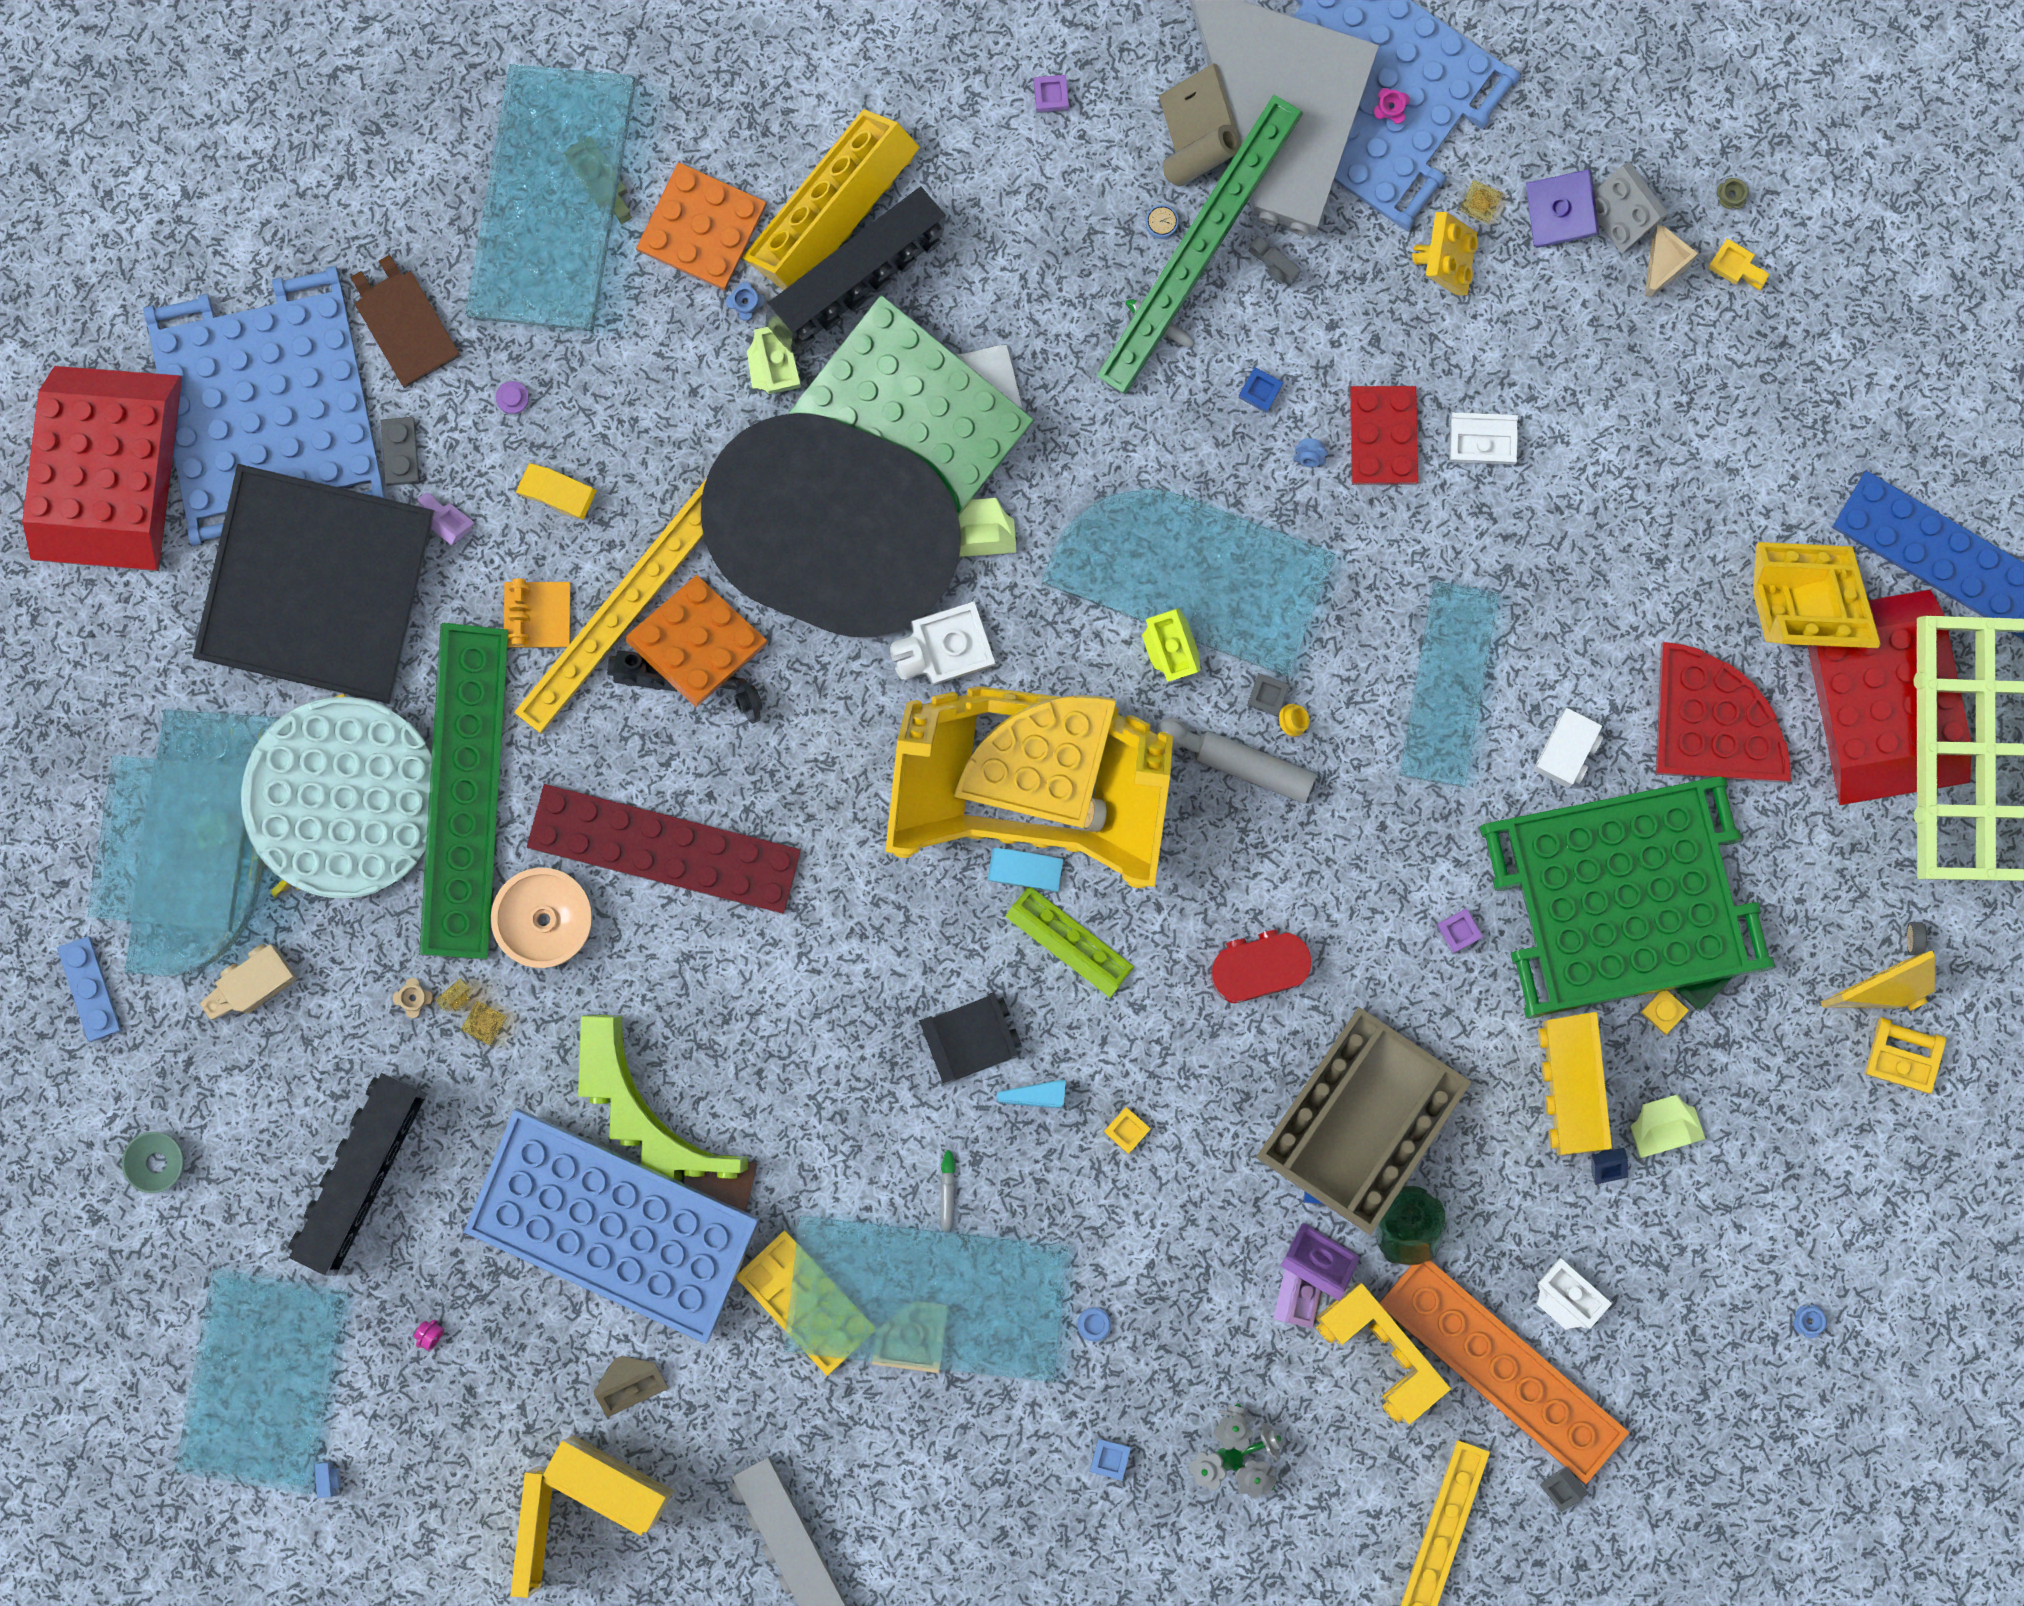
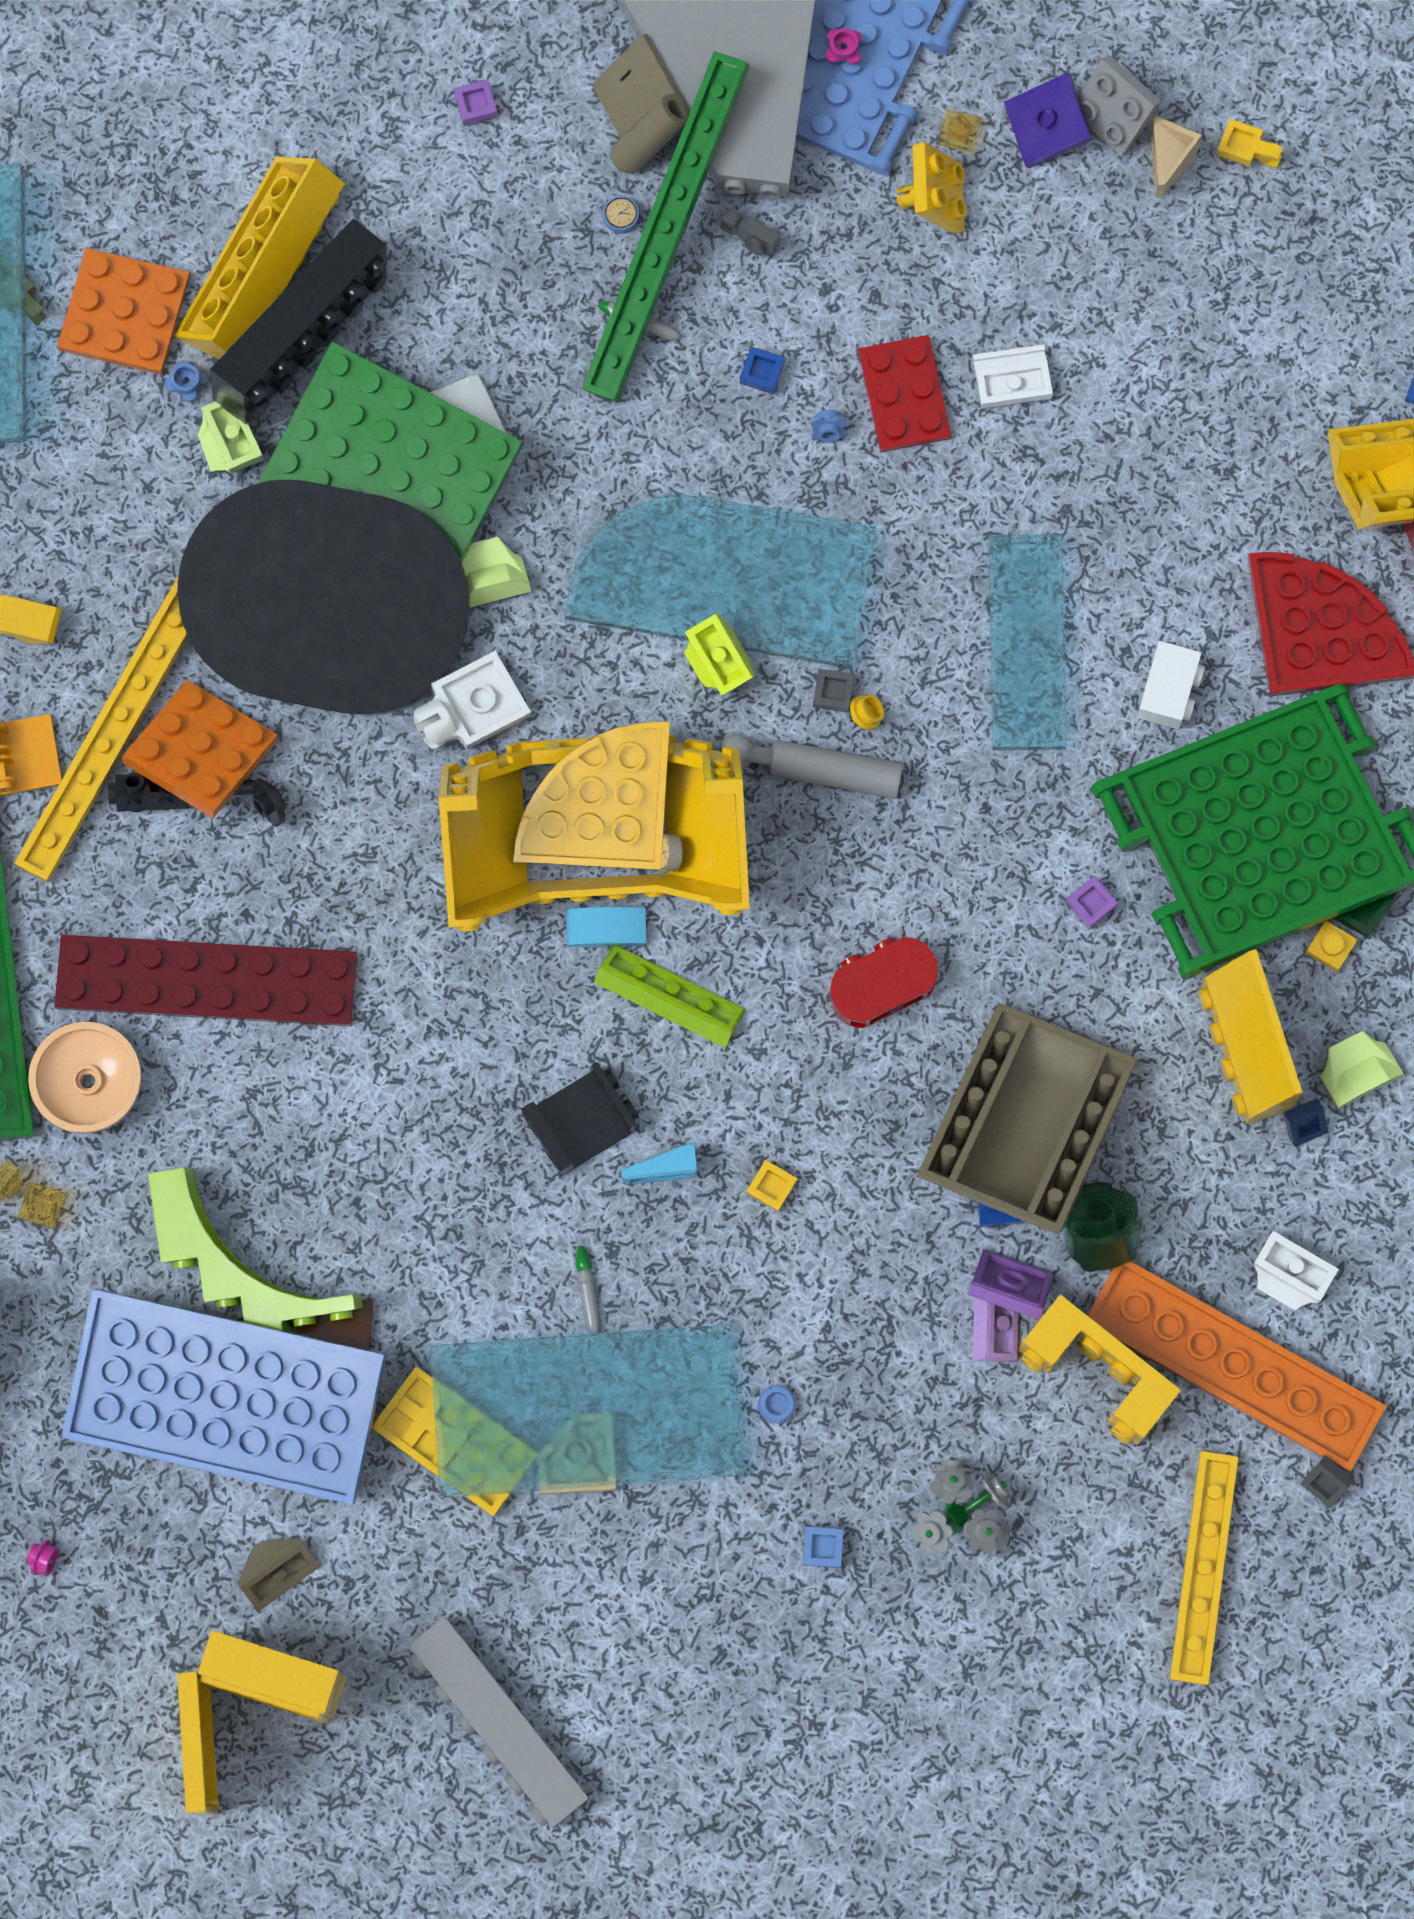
camera: 10 degrees left, 5 degrees down
(1737, 186) = (1227, 63): olive plate -> none

